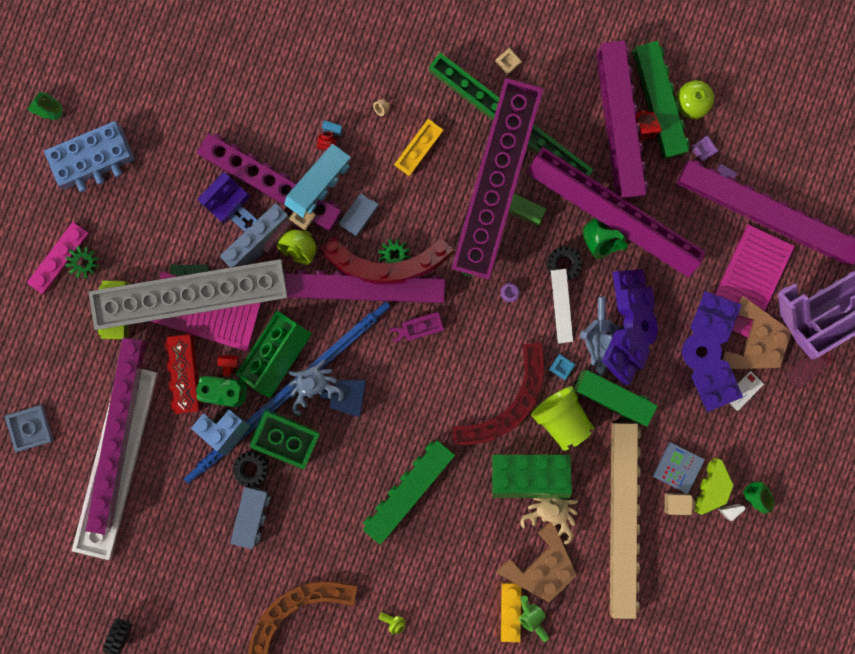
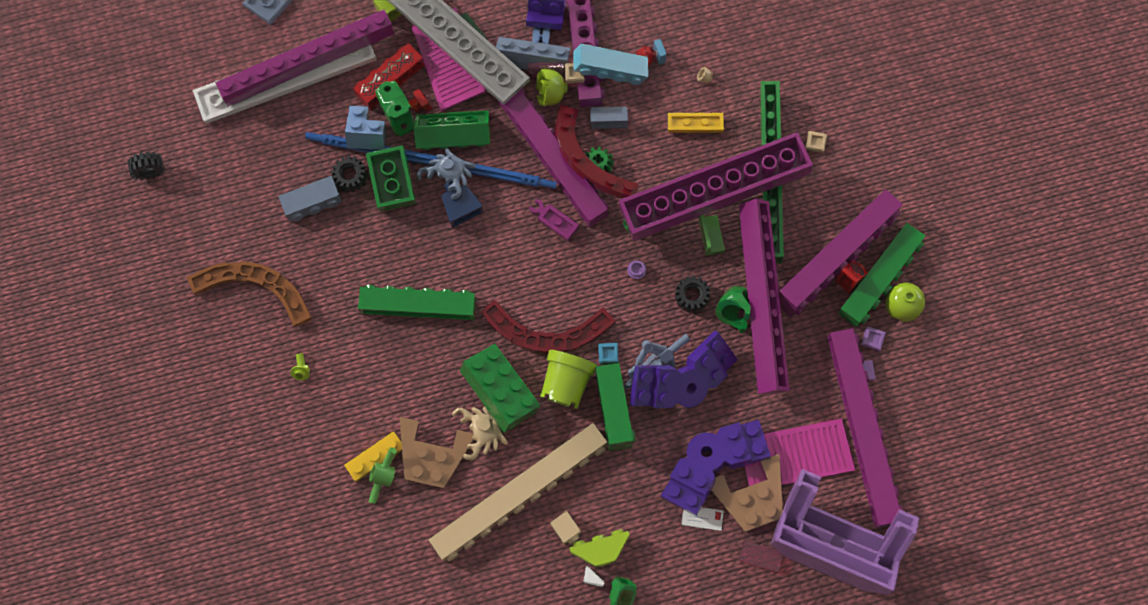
camera: 60 degrees right, 15 degrees down
(561, 306) = (656, 316): white sticker -> none
(678, 467) = (596, 508): sand blue tile -> none

